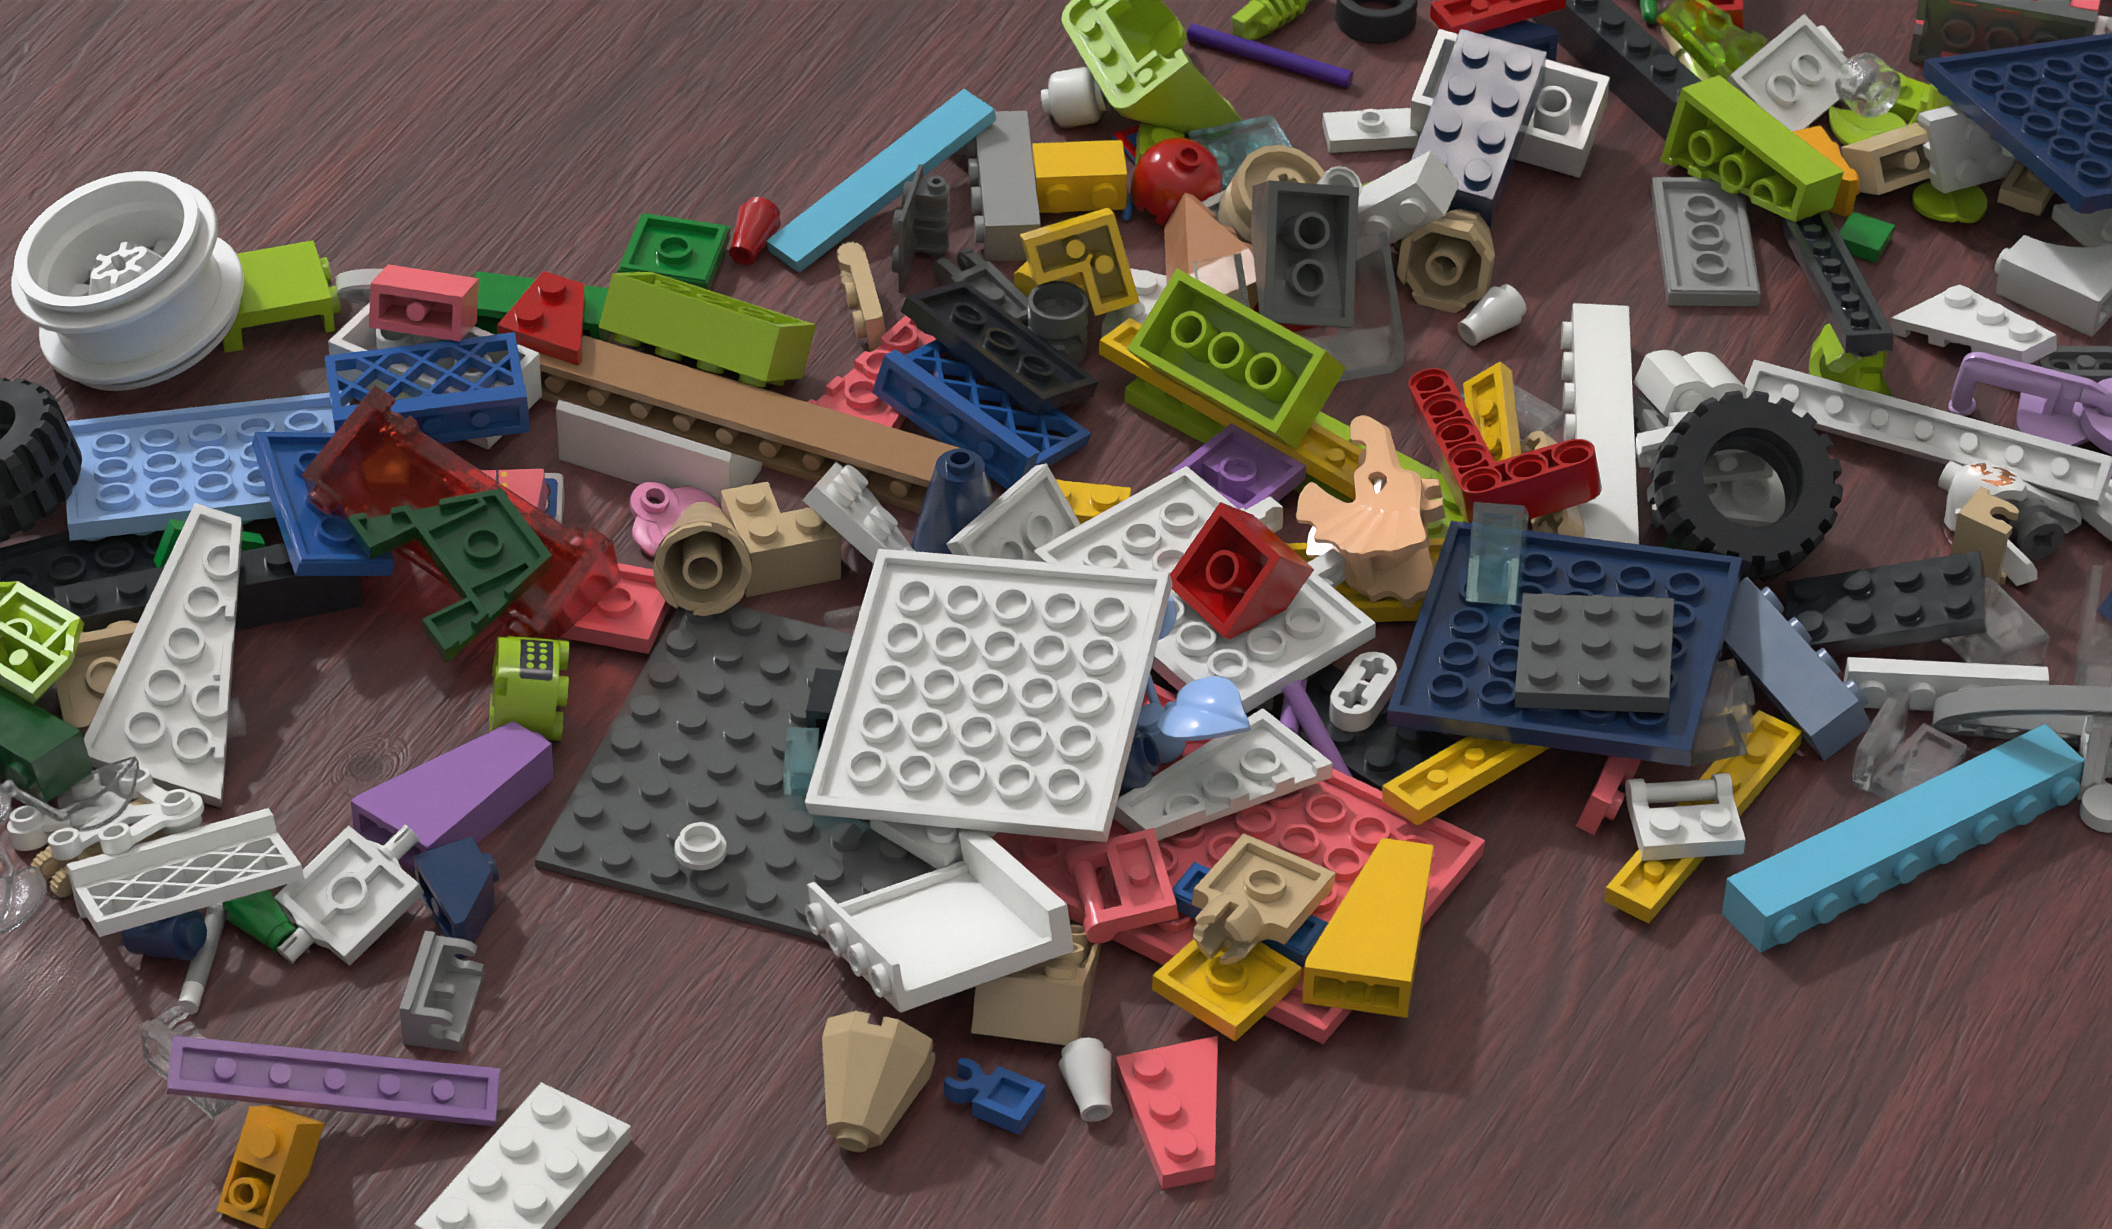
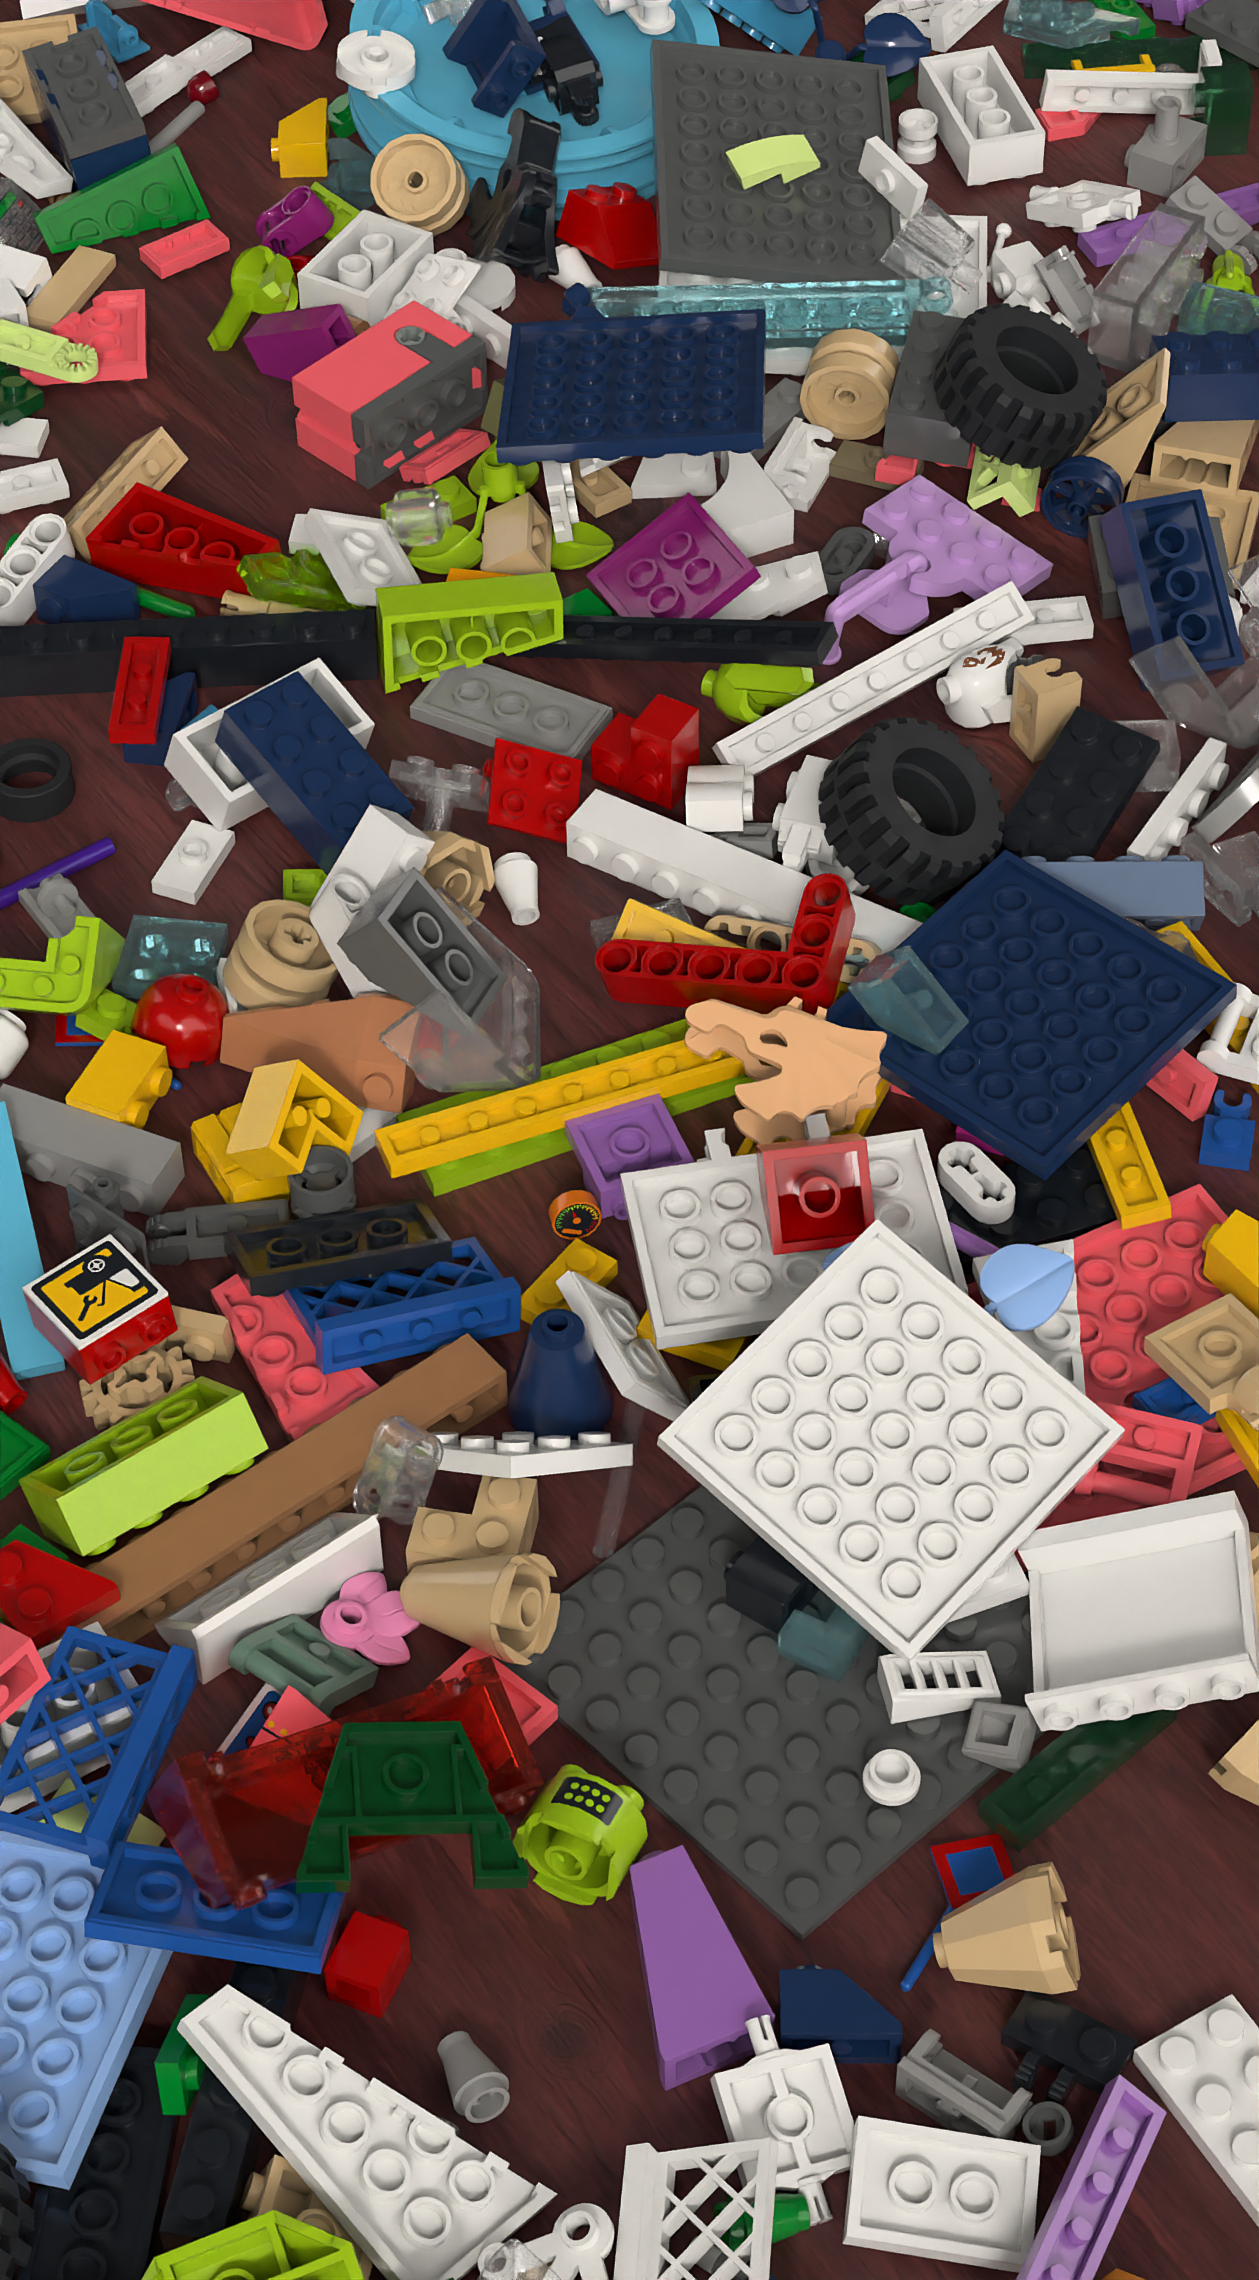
camera: 60 degrees left, 5 degrees up
(289, 720) = (474, 2081): none -> light grey cone
(335, 994) = (941, 2194): none -> white plate
(355, 626) = (368, 1963): none -> red brick
(435, 1048) = (1035, 2128): none -> dark grey hinge
(528, 1040) = (1065, 2042): none -> black hinge
(600, 973) = (1013, 1936): none -> tan cone
(606, 492) = (303, 1650): none -> sand green plate
(656, 943) = (965, 1872): none -> piece
(784, 903) = (1000, 1735): none -> light grey slope
(784, 960) = (1066, 1774): none -> clear green plate
(787, 820) = (926, 1702): none -> white slope
(794, 466) = (401, 1470): none -> clear piece
(803, 298) = (135, 1385): none -> tan gear
(827, 238) = (100, 1309): none -> piece
(1149, 469) = (574, 1214): none -> tile
(1236, 358) = (540, 1064): lime brick -> none
(1239, 71) = (54, 905): none -> light grey hips
(1313, 725) = (996, 1232): medium lavender piece -> none
(1551, 222) = (440, 789): none -> clear plate
(1573, 854) = (1228, 1134): none -> blue plate
(1595, 653) = (1074, 993): dark grey plate -> none
(1601, 270) = (532, 790): none -> red hinge
(1708, 319) = (649, 752): none -> red brick
(1944, 259) = (675, 567): none -> magenta plate

